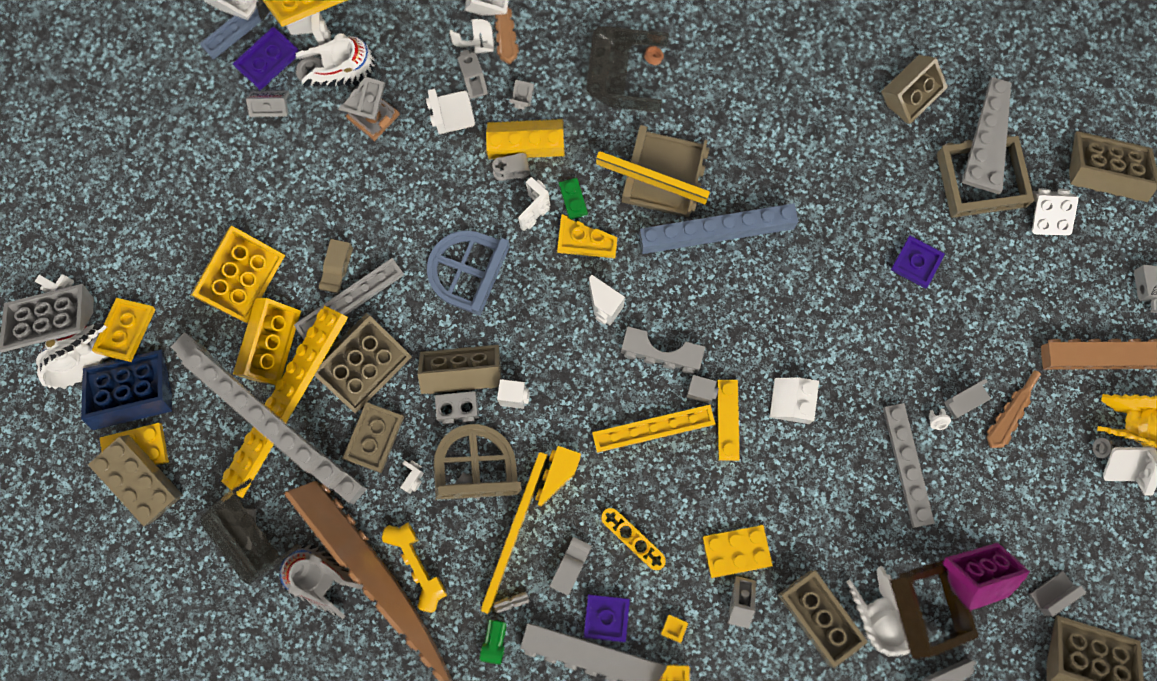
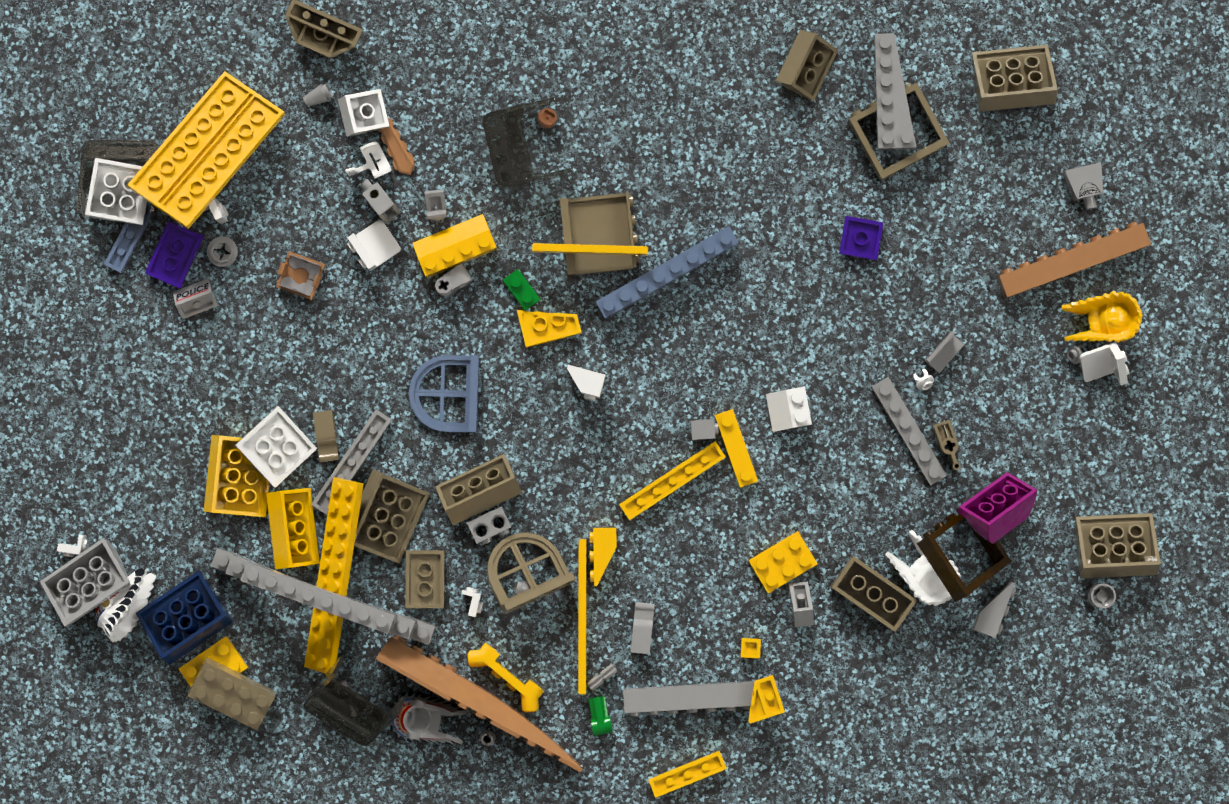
camera: 20 degrees left, 10 degrees up
(124, 329) = (159, 558): yellow plate -> none
(282, 258) = (276, 446): none -> white plate
(344, 62) = (251, 231): white piece -> none
(365, 99) = (291, 267): light grey wing -> none
(376, 622) = (491, 735): none -> light grey pin
(513, 394) = (536, 496): white brick -> none
(540, 206) = (489, 299): white bracket -> none
(606, 618) = (689, 660): dark purple plate -> none
(635, 536) = (687, 587): yellow beam -> none
(638, 345) = (631, 409): light grey arch -> none
(945, 479) = (944, 432): none -> dark tan piece
(1006, 422) = (985, 360): medium nougat sword -> none
(1054, 211) = (971, 143): white bracket -> none
(1056, 594) = (1069, 499): light grey panel -> none

